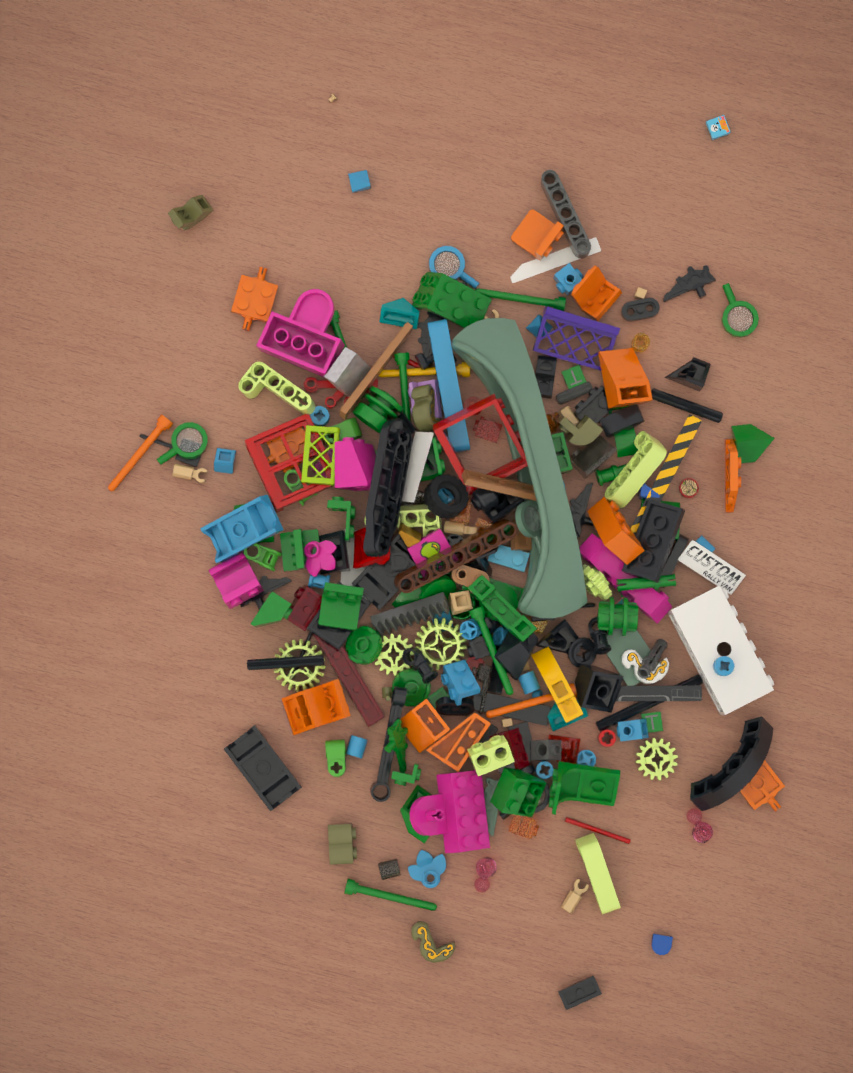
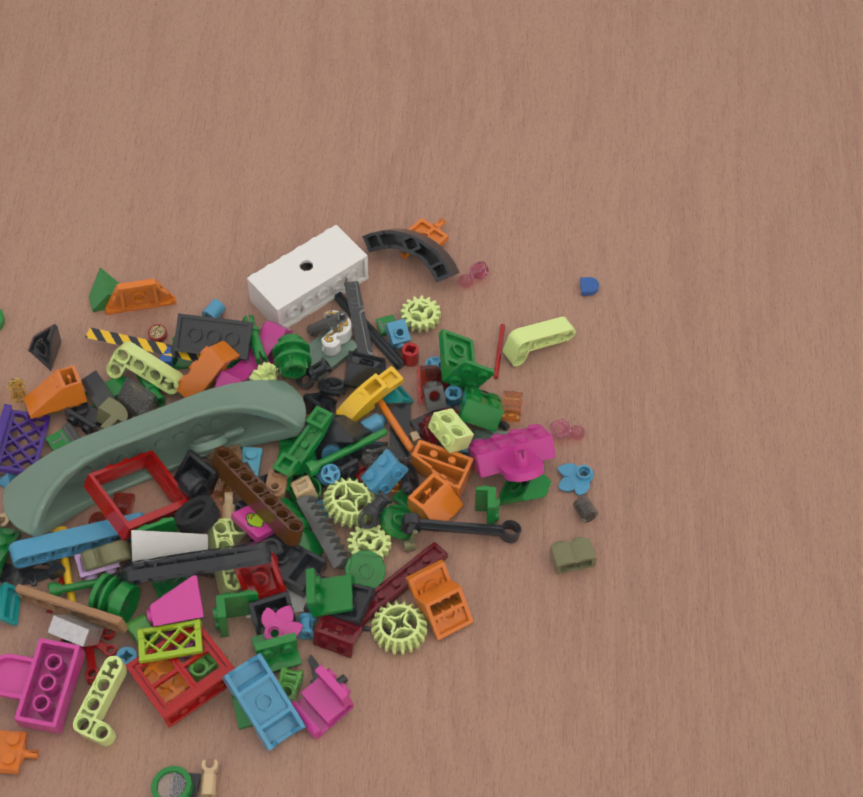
camera: 100 degrees left, 30 degrees down
(224, 460) = (189, 747): dark azure slope -> none
(262, 768) = (513, 641): black piece -> none
(272, 611) = (347, 658): green slope -> none
(285, 662) = (399, 633): black axle -> none
(336, 754) = (485, 575): bright green piece -> none
(353, 887) = (612, 539): green piece -> none
(356, 746) = (471, 560): dark azure gear -> none
(398, 743) = (460, 518): green piece -> none
(409, 535) = (246, 537): pearl gold slope -> none
(427, 945) = (647, 464): olive animal -> none
(498, 484) = (177, 470): medium nougat tile -> none
(573, 897) = (565, 356): tan bar -> none
(579, 992) = (653, 337): black plate -> none
(686, 405) = (78, 341): black axle -> none
(711, 567) = (230, 299): white sticker -> none
(721, 668) = (322, 259): dark azure wheel -> none

